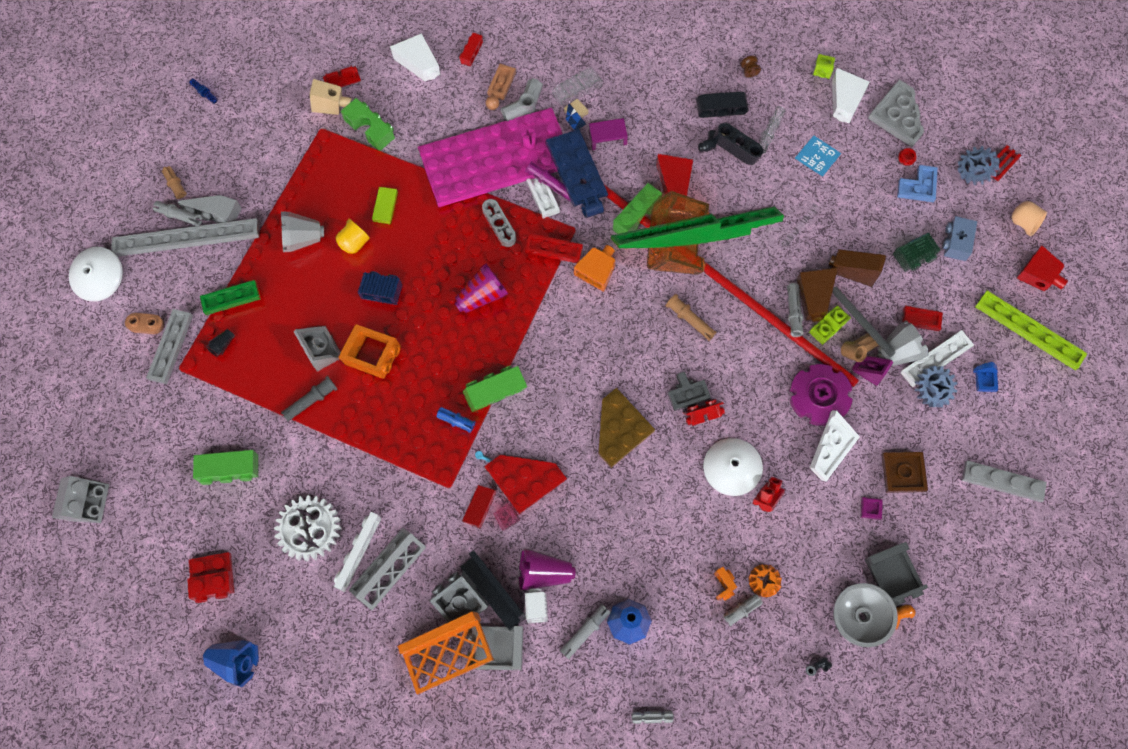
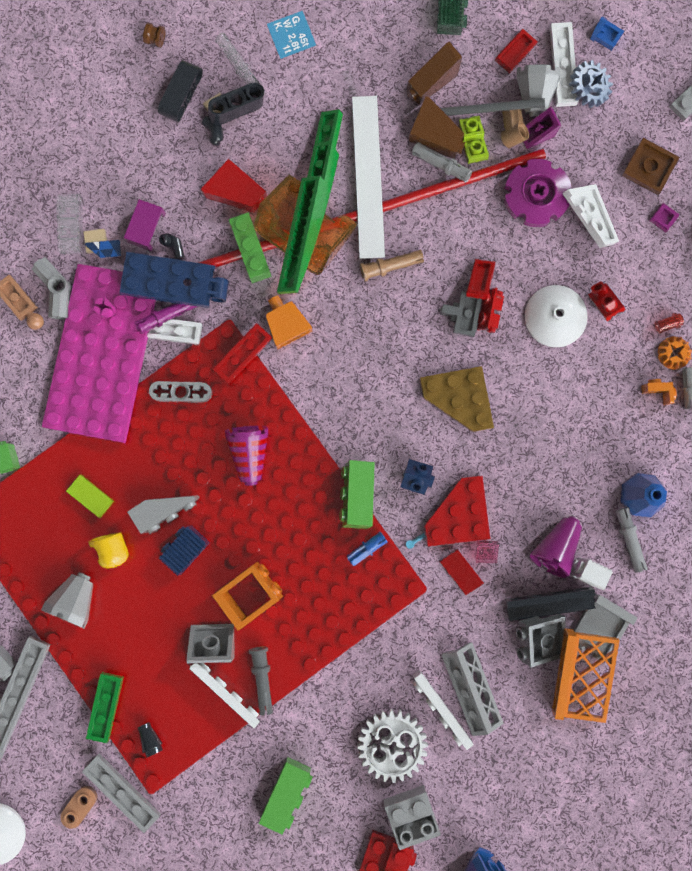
camera: 65 degrees left, 15 degrees up
(255, 574) = (411, 817): none -> light grey slope
(282, 384) = (232, 699): none -> white plate
(395, 251) = (155, 511): none -> light grey slope
(535, 426) = (417, 477): none -> dark blue brick
(607, 160) = (173, 243): none -> black arm
(723, 389) = (481, 279): none -> red tile
(746, 264) = (368, 177): none -> white sticker
(786, 561) = (669, 323): none -> clear red pin

